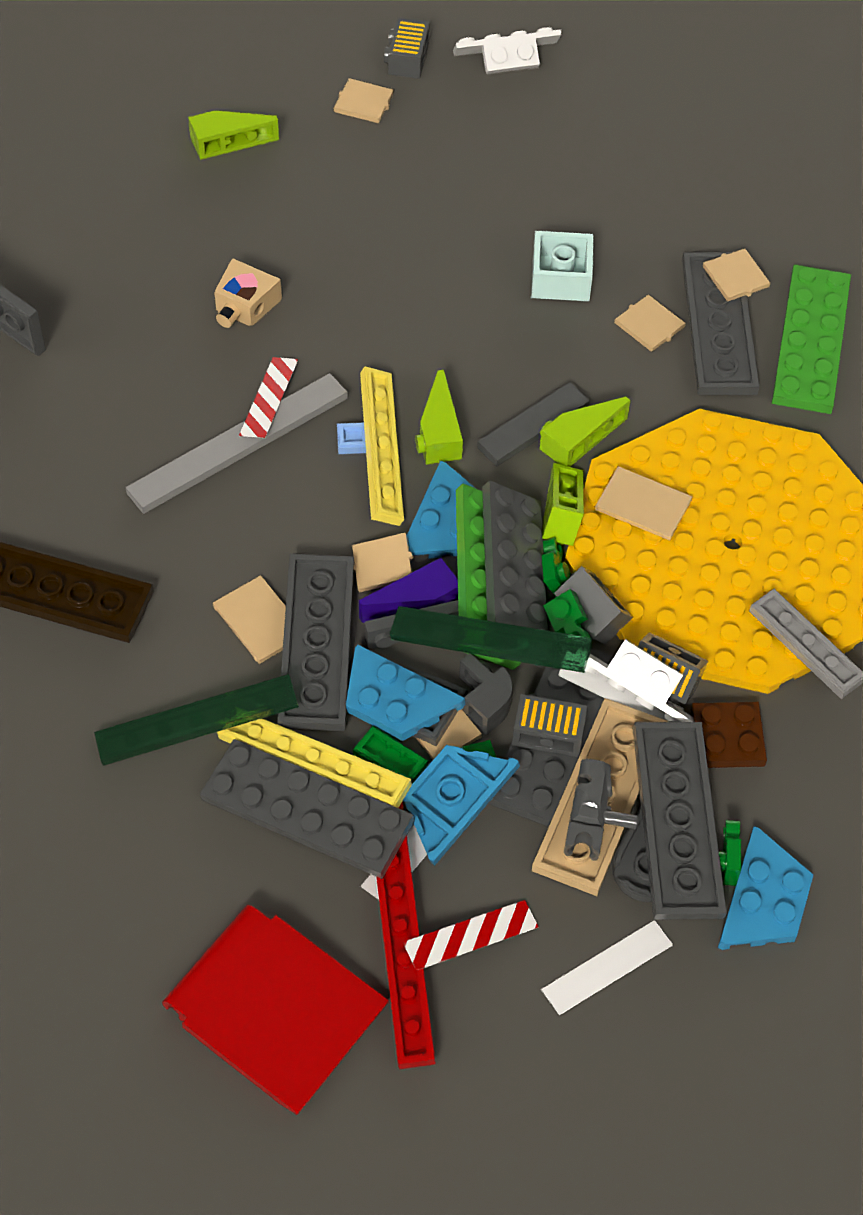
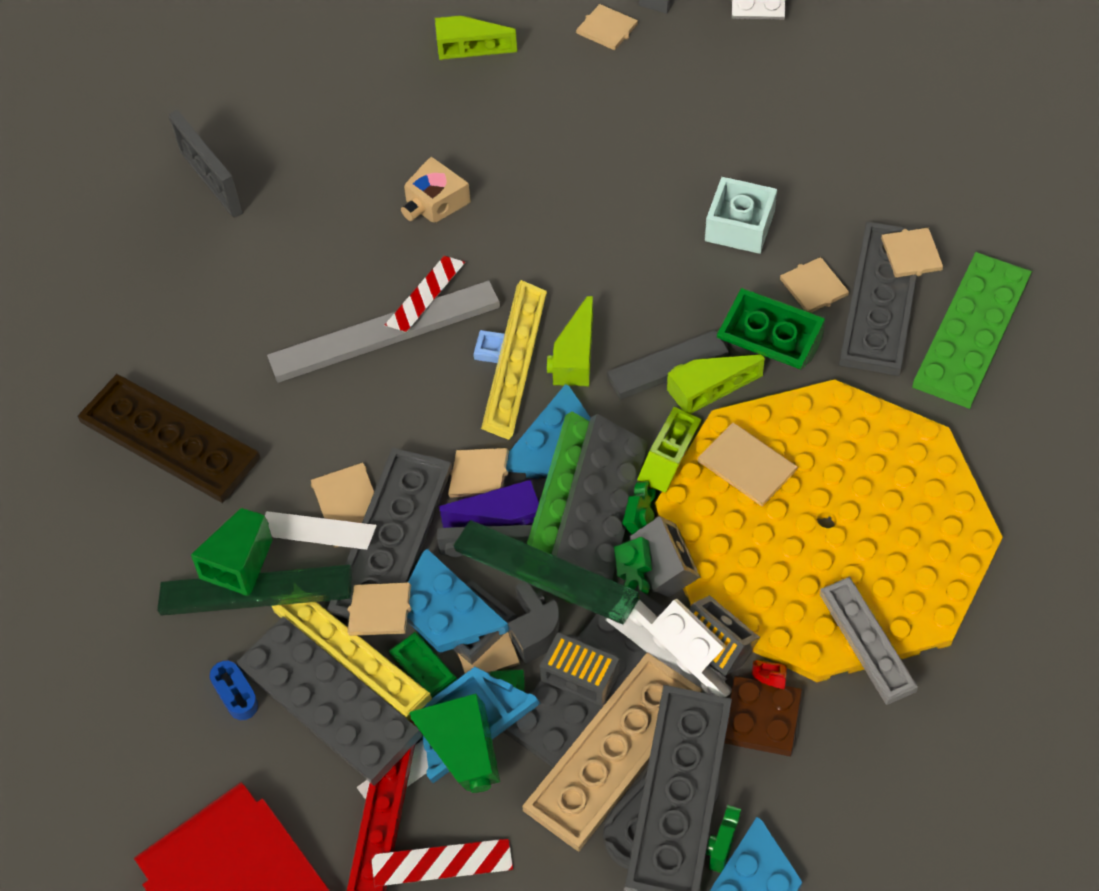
camera: 20 degrees right, 0 degrees up
(165, 686) = (235, 552): none -> green slope
(201, 826) = (239, 686): none -> blue beam
(238, 649) = (320, 530): none -> white sticker
(332, 710) = (379, 609): none -> tan piece
(457, 816) = (462, 740): none -> green slope
(591, 809) = (594, 764): dark grey piece -> none
(628, 369) = (772, 329): none -> green slope
(724, 693) = (770, 673): none -> red tile

